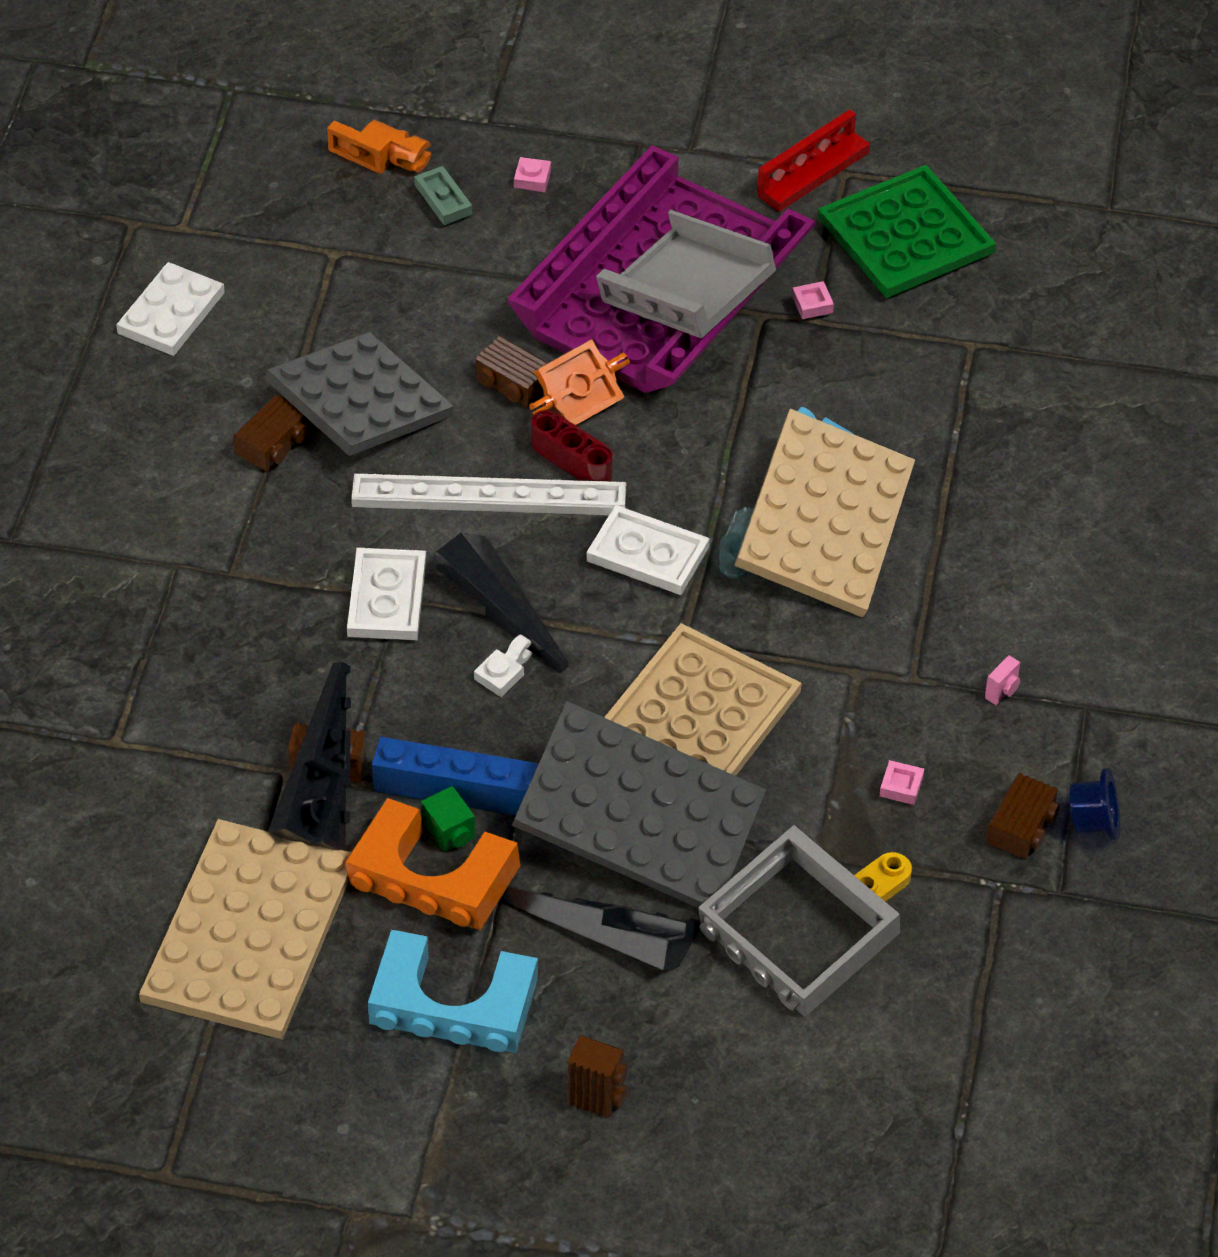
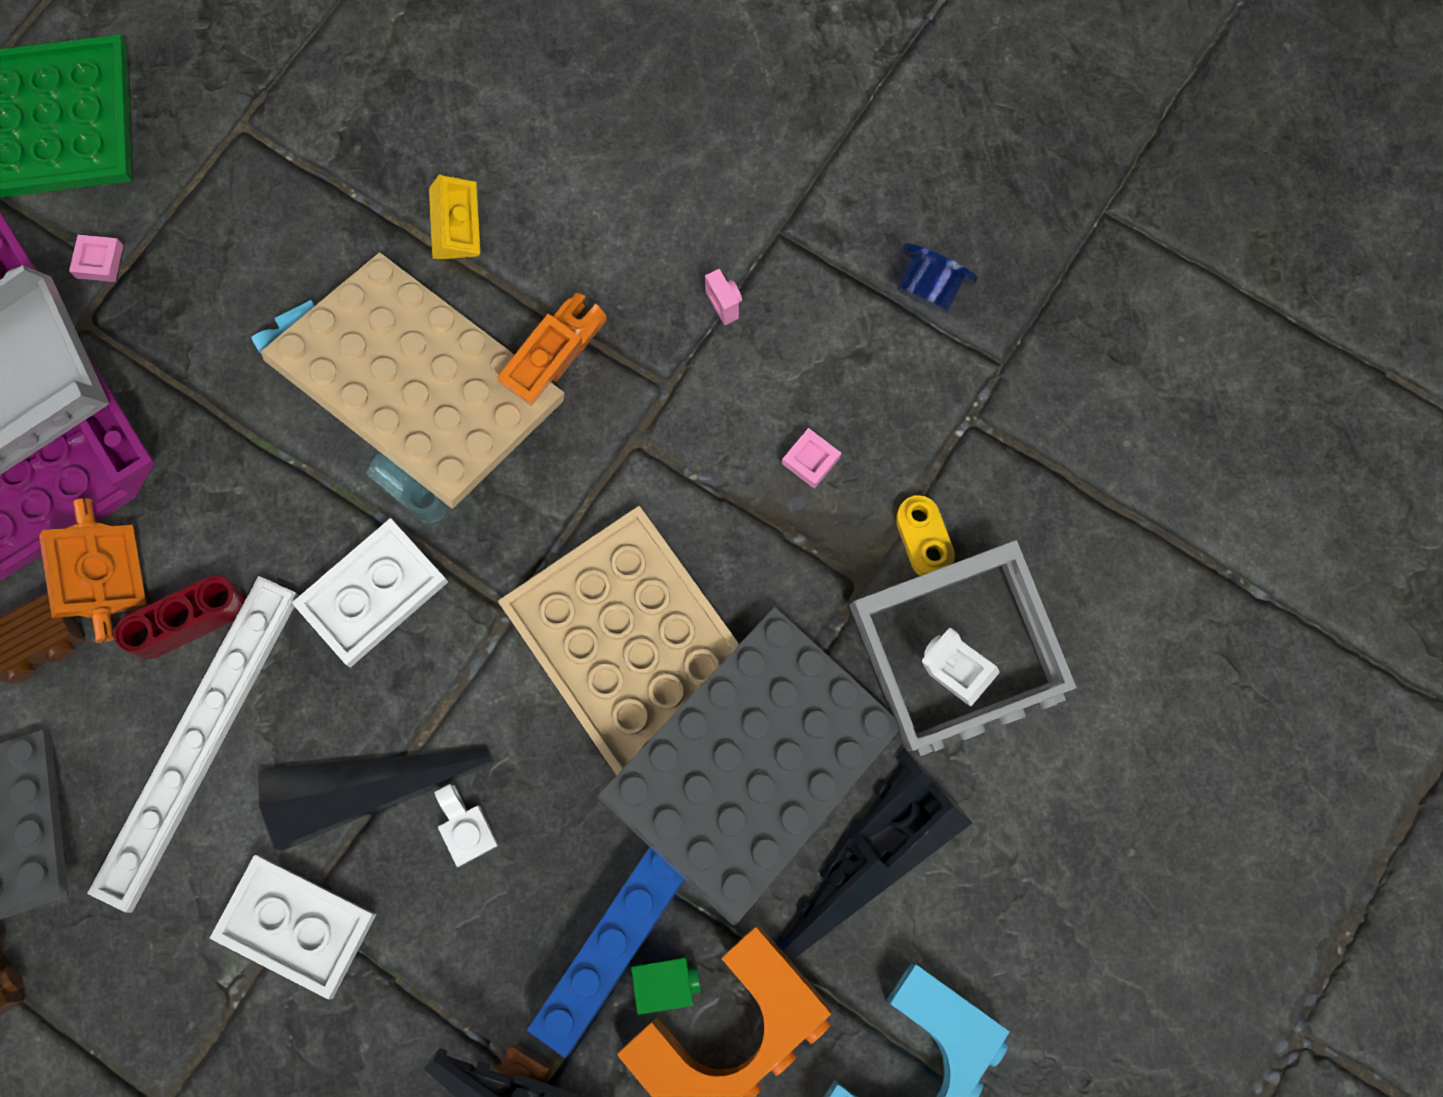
camera: 65 degrees left, 25 degrees up
(596, 1076) = (1103, 961): reddish brown brick -> none
(777, 900) = (958, 666): none -> white bracket
(895, 583) = (551, 349): none -> orange plate
(972, 497) = (454, 218): none -> yellow slope
(1022, 816) = (907, 356): reddish brown brick -> none

